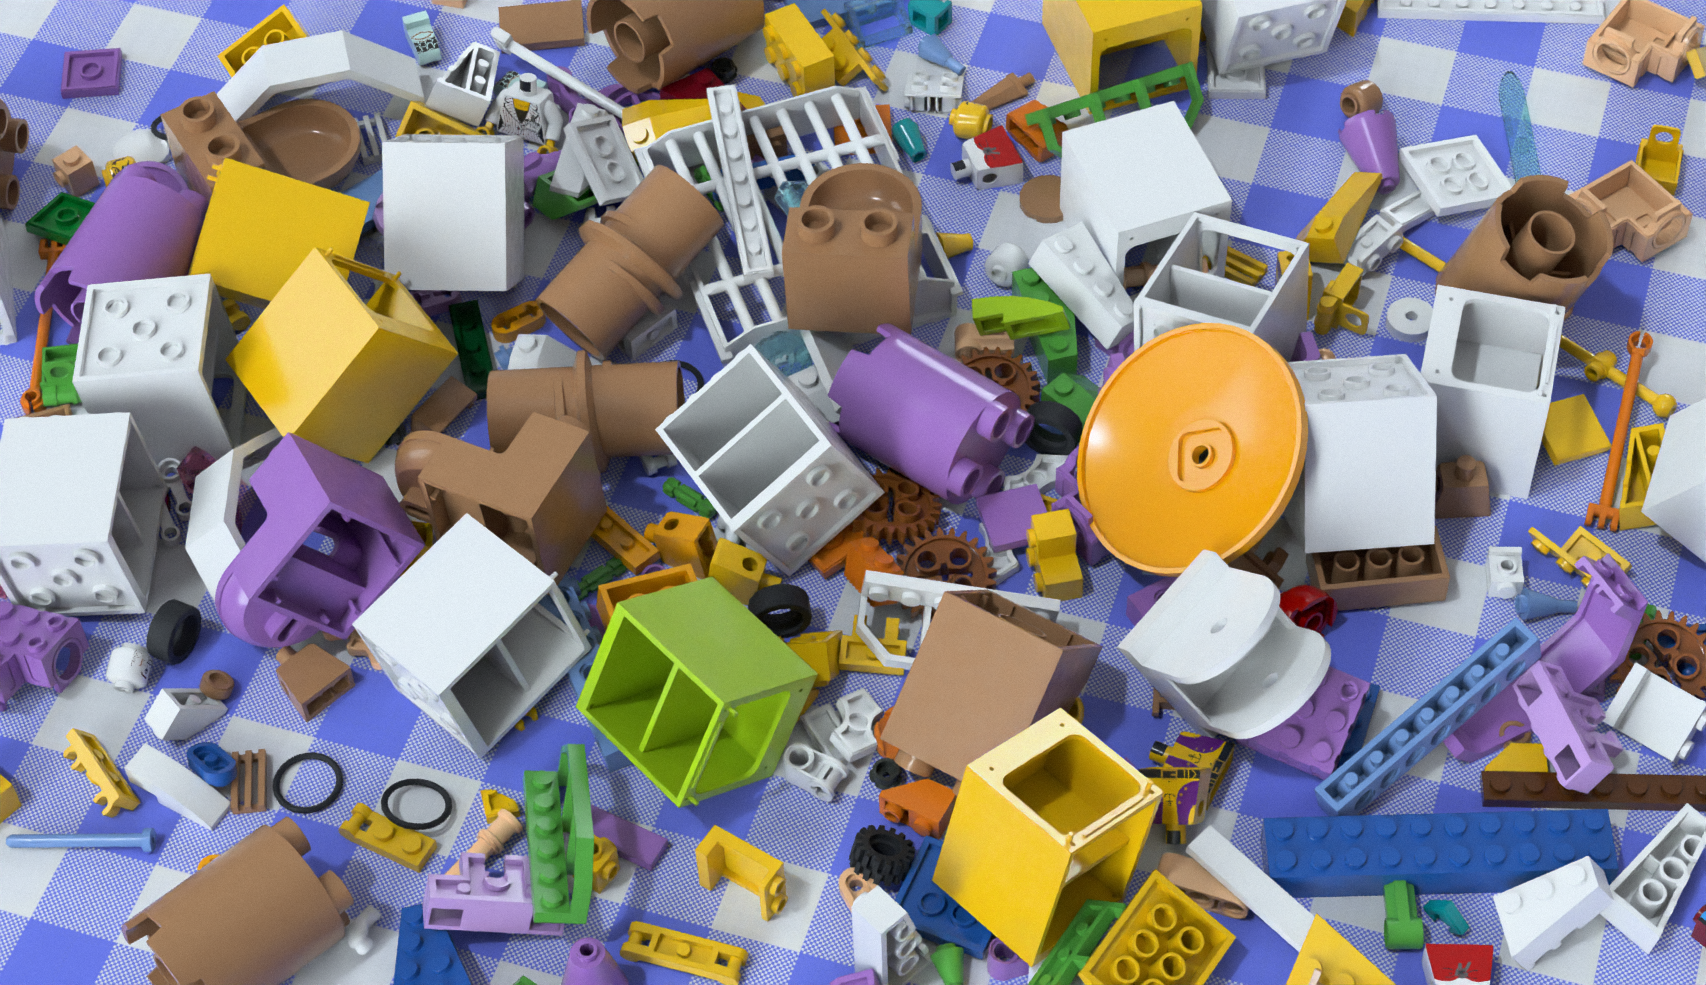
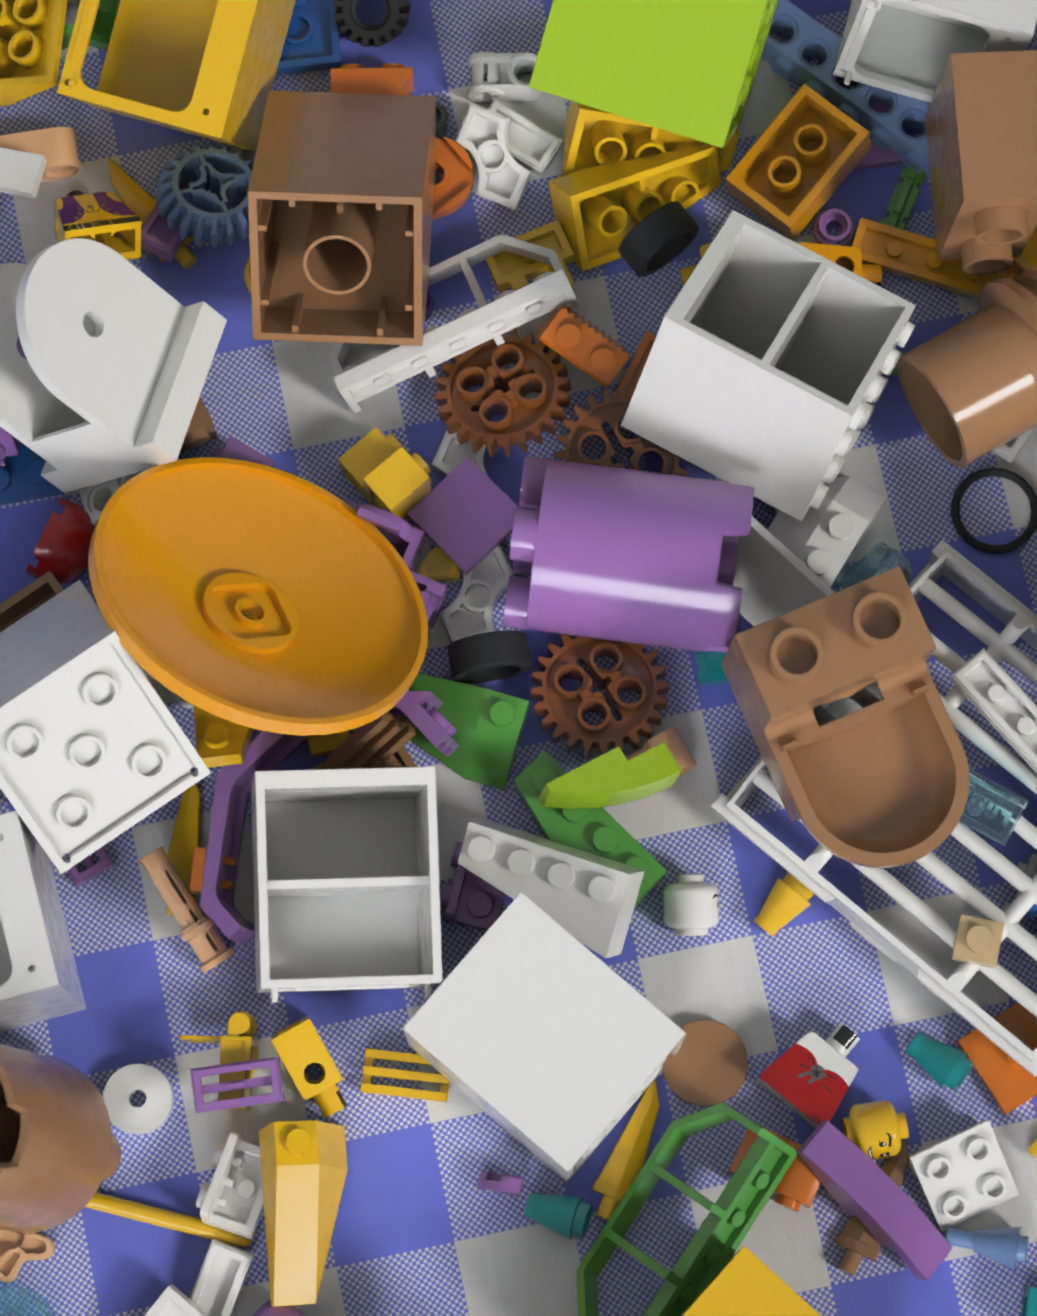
camera: 150 degrees right, 25 degrees up
(854, 143) = (977, 941): none -> tan plate
(994, 88) = (875, 1198): none -> medium lavender slope
(1345, 269) = (274, 1080): none -> medium lavender tile

